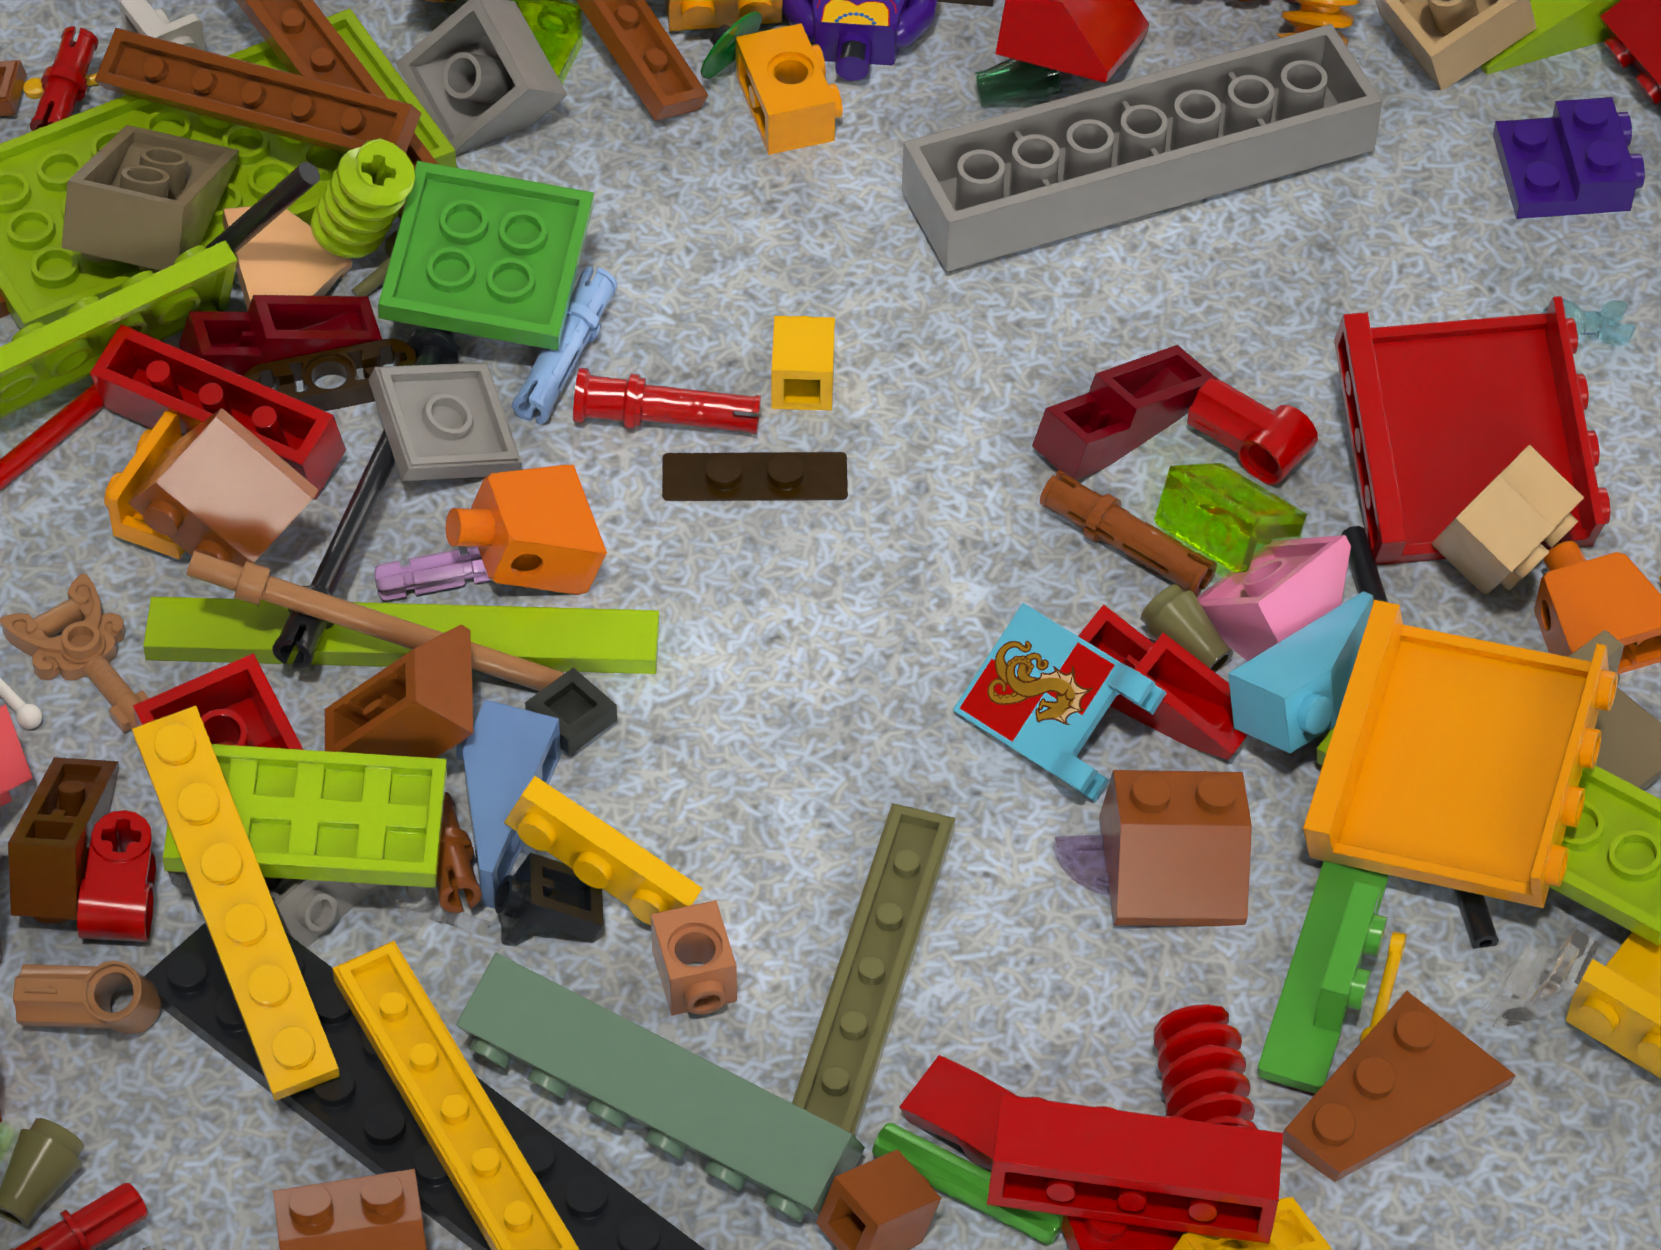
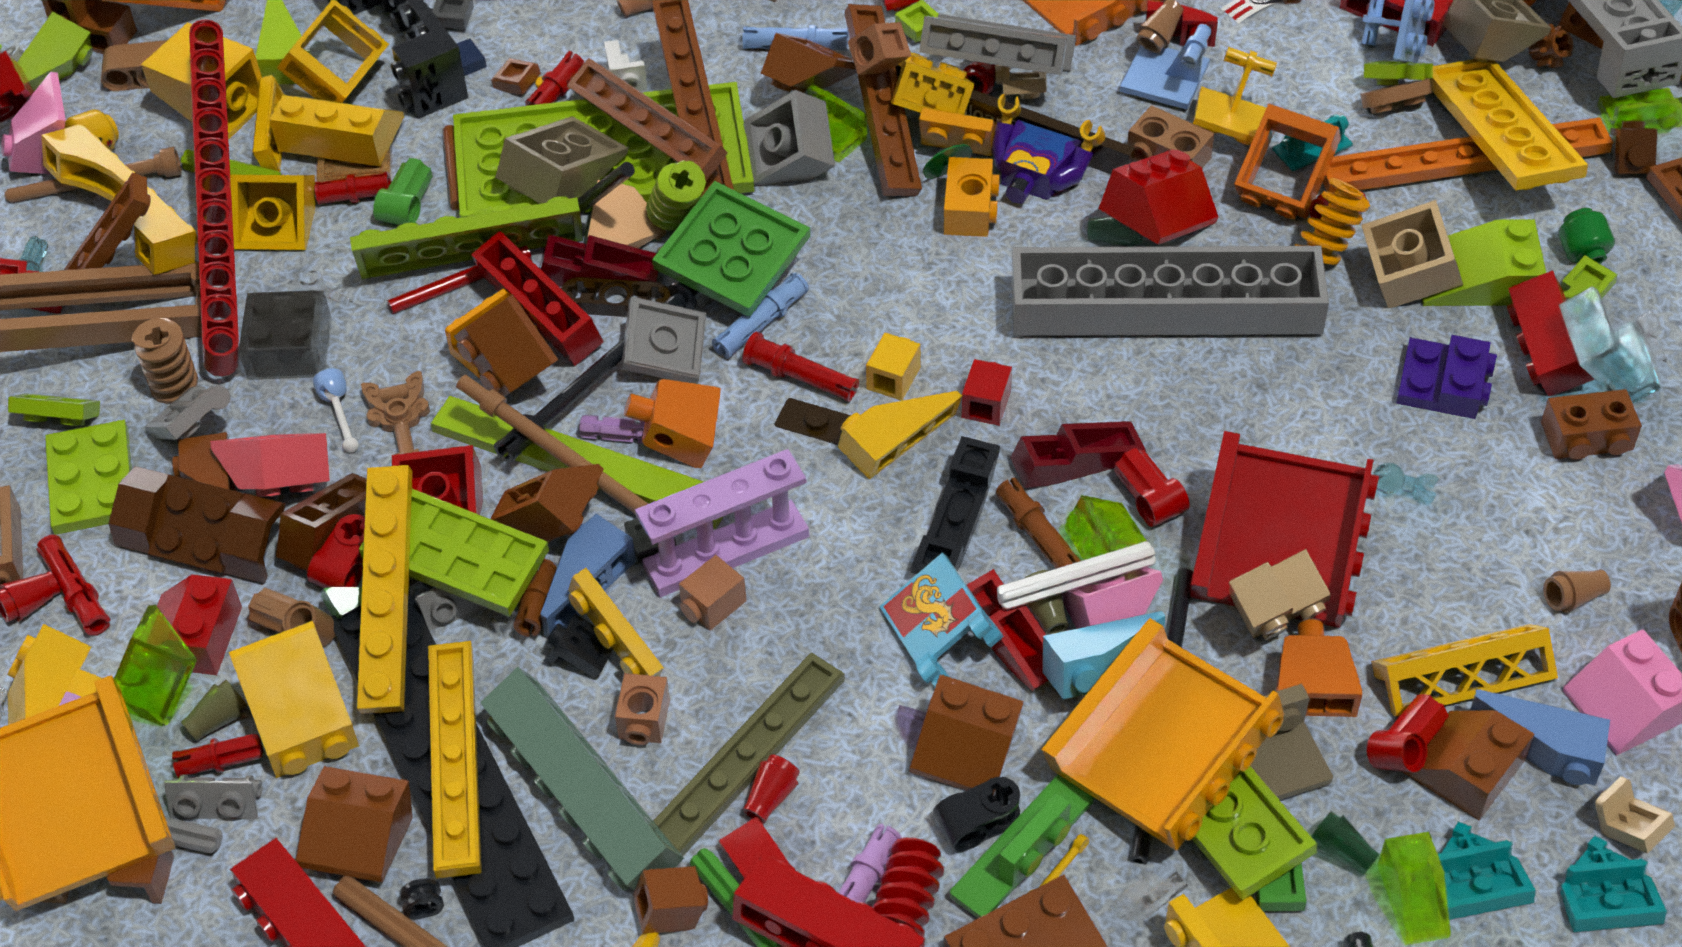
camera: 25 degrees right, 0 degrees up
(158, 945) = (341, 599): none -> slope
(167, 1112) = (294, 699): none -> yellow slope
(686, 655) = (735, 543): none -> lavender fence
(708, 763) = (712, 593): none -> nougat brick
(847, 453) = (893, 428): none -> yellow slope
(935, 1007) = (771, 787): none -> red cone
(956, 361) = (986, 392): none -> red brick
(996, 530) = (960, 504): none -> black slope
(1128, 1070) = (870, 864): none -> lavender pin
(1224, 578) = (1076, 575): none -> white axle
(1246, 947) = (977, 814): none -> black piece

